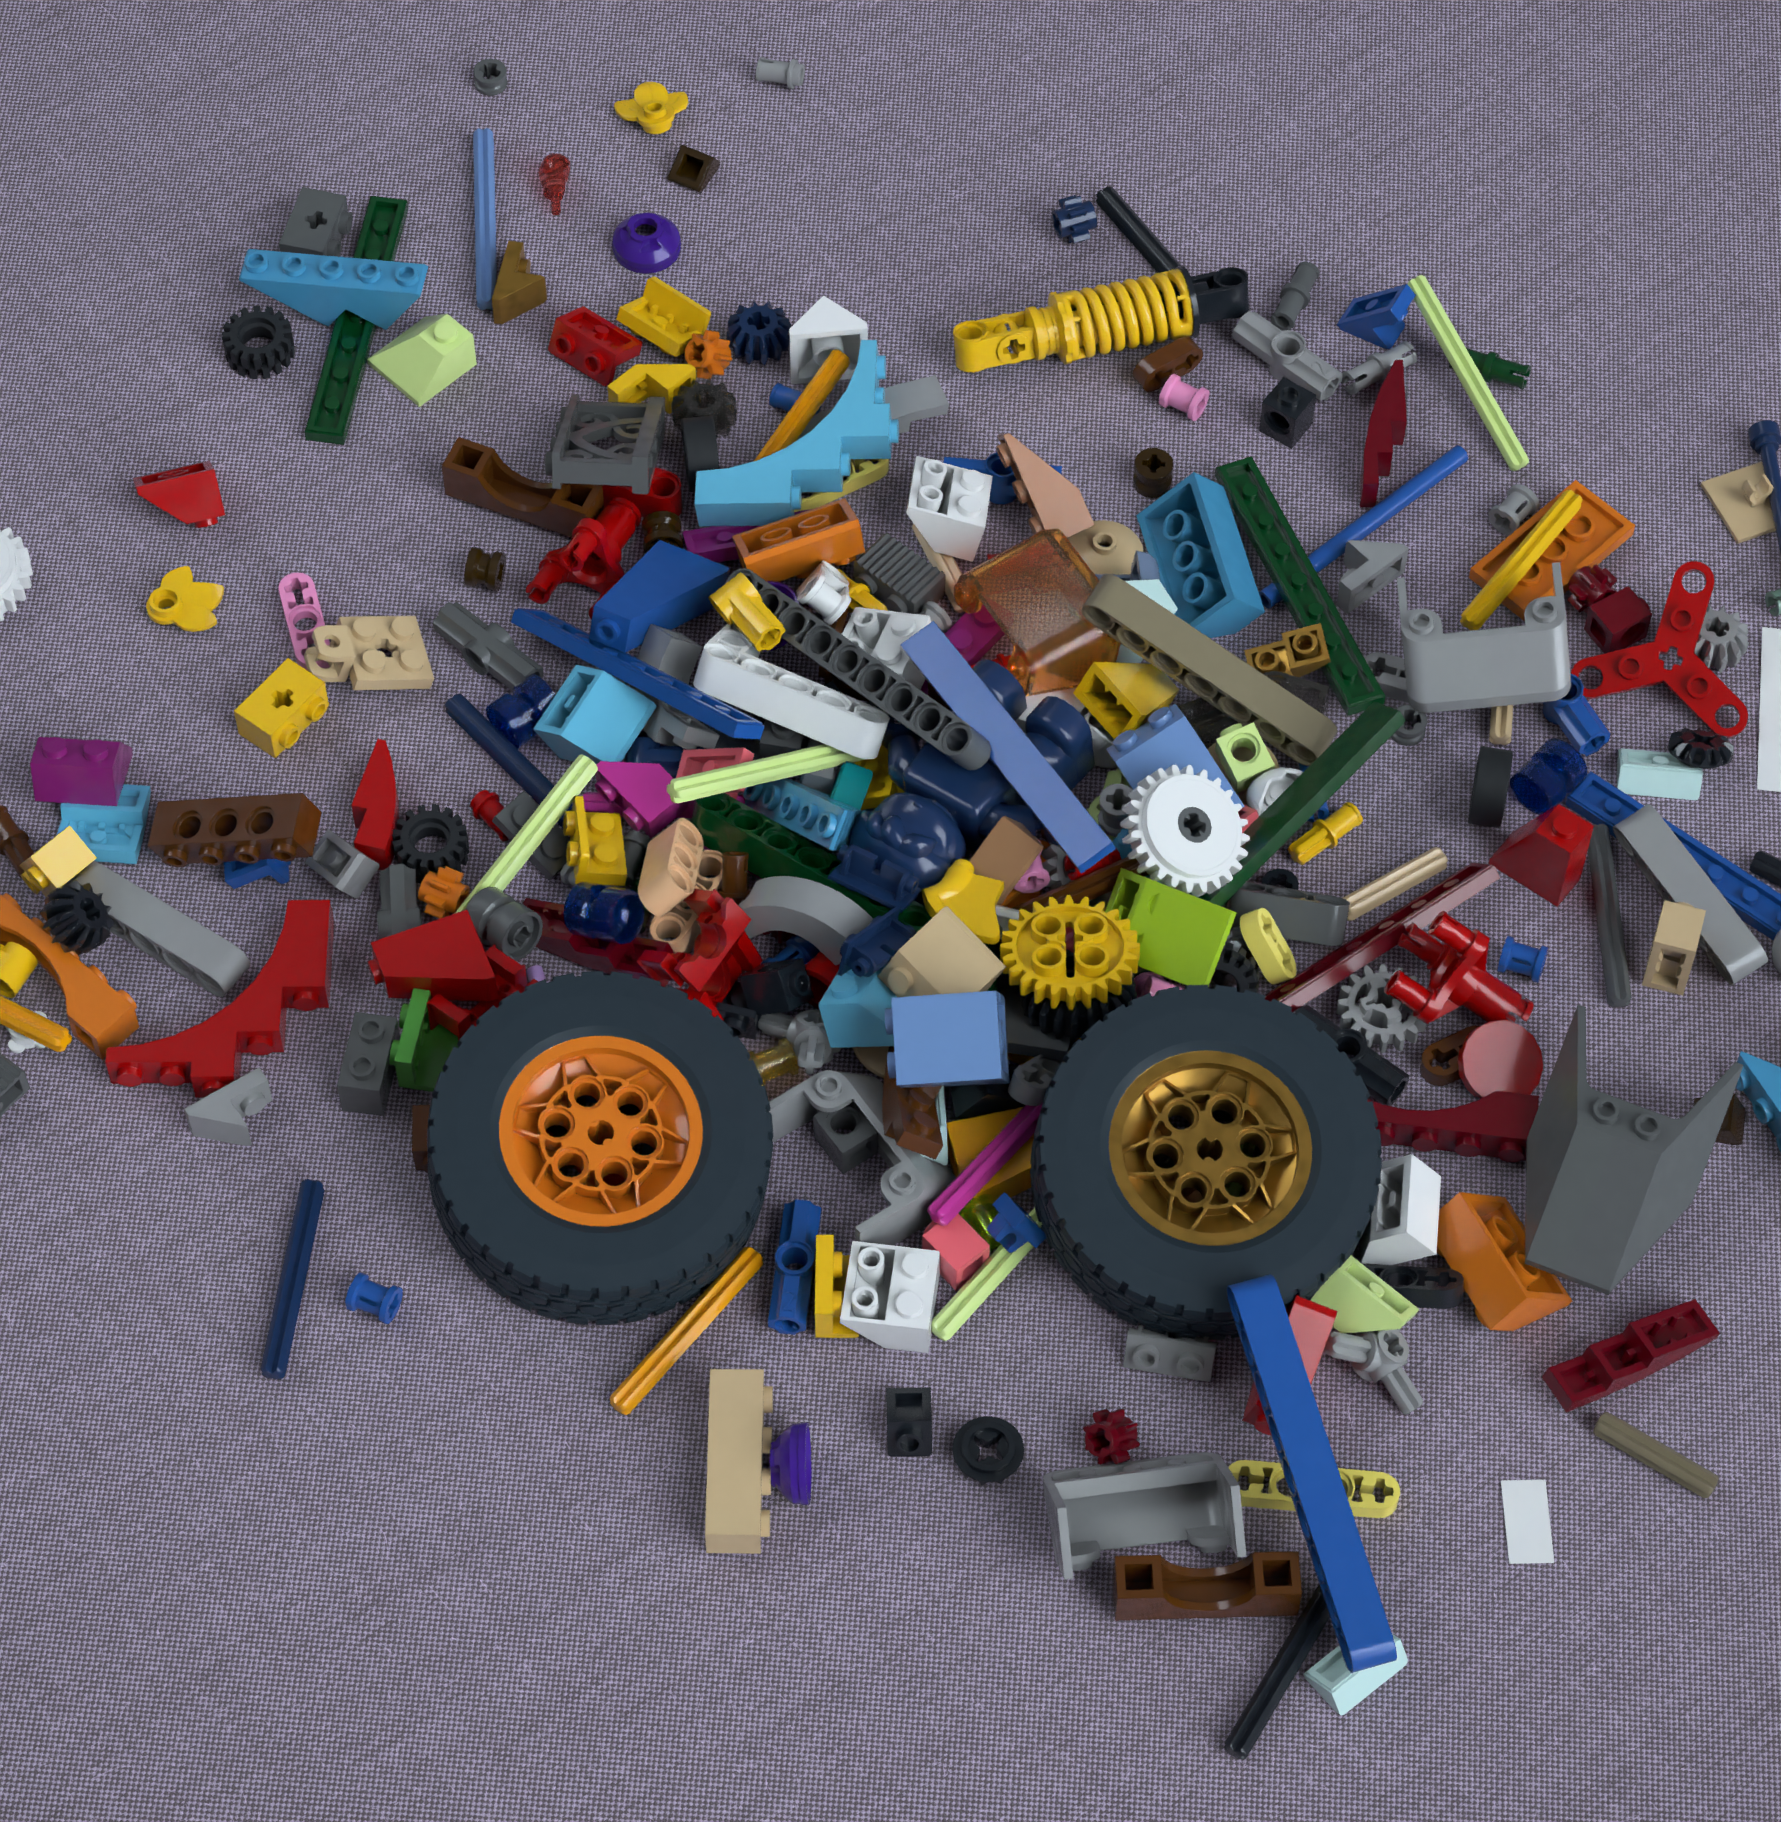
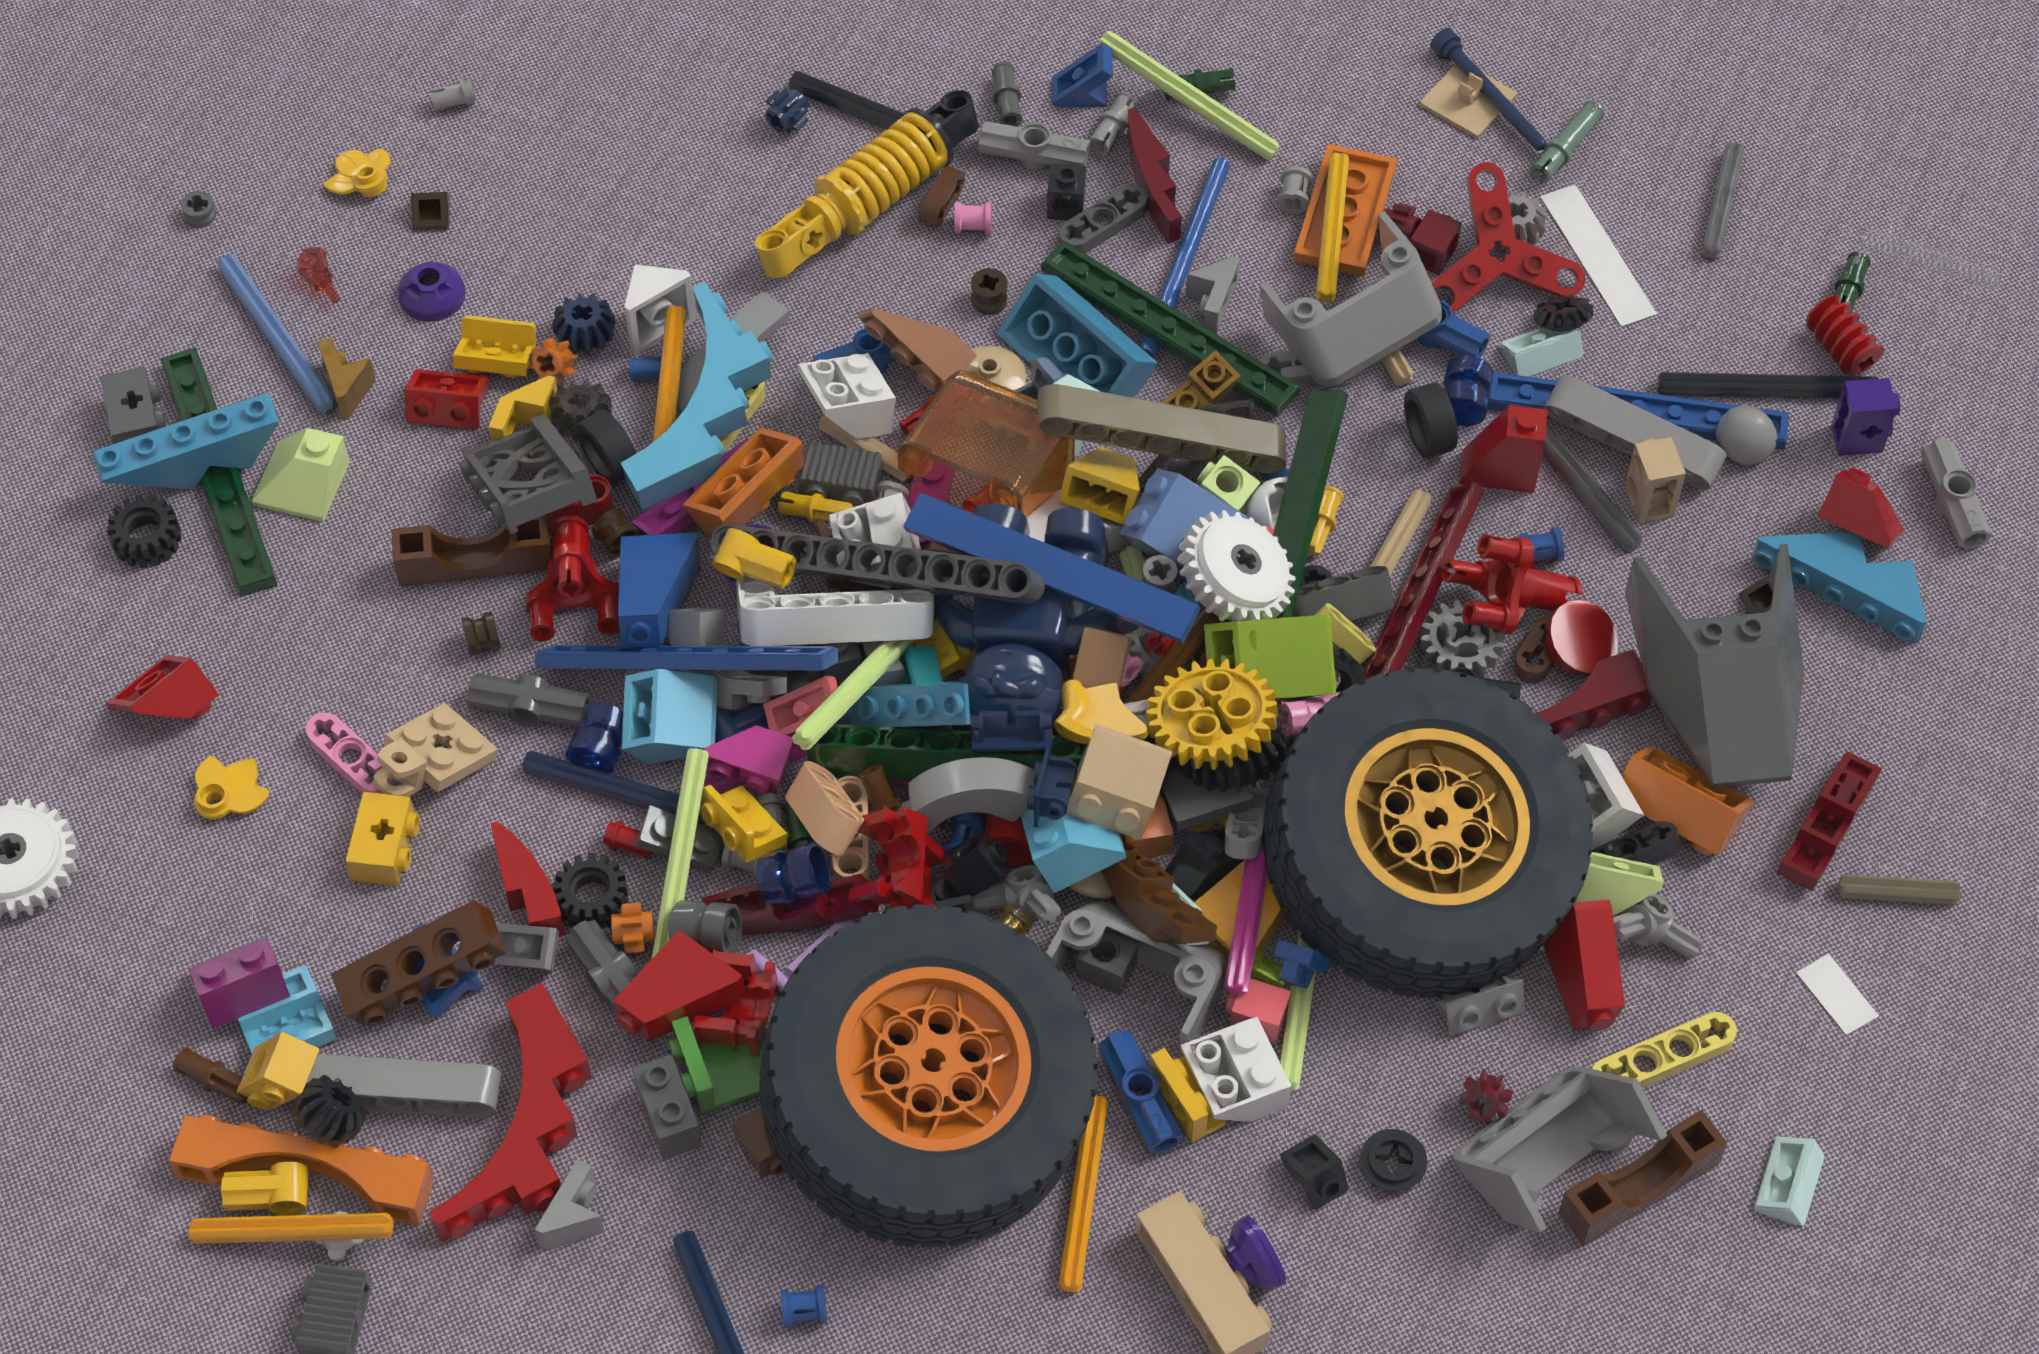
camera: 30 degrees left, 0 degrees up
(825, 592) = (795, 514): white piece -> none
(948, 1039) = (1170, 834): medium blue slope -> none
(1278, 1677) = (1738, 1207): black axle -> none
(1311, 1474) = (1676, 1040): blue beam -> none
(1318, 443) = (1110, 207): none -> dark grey beam

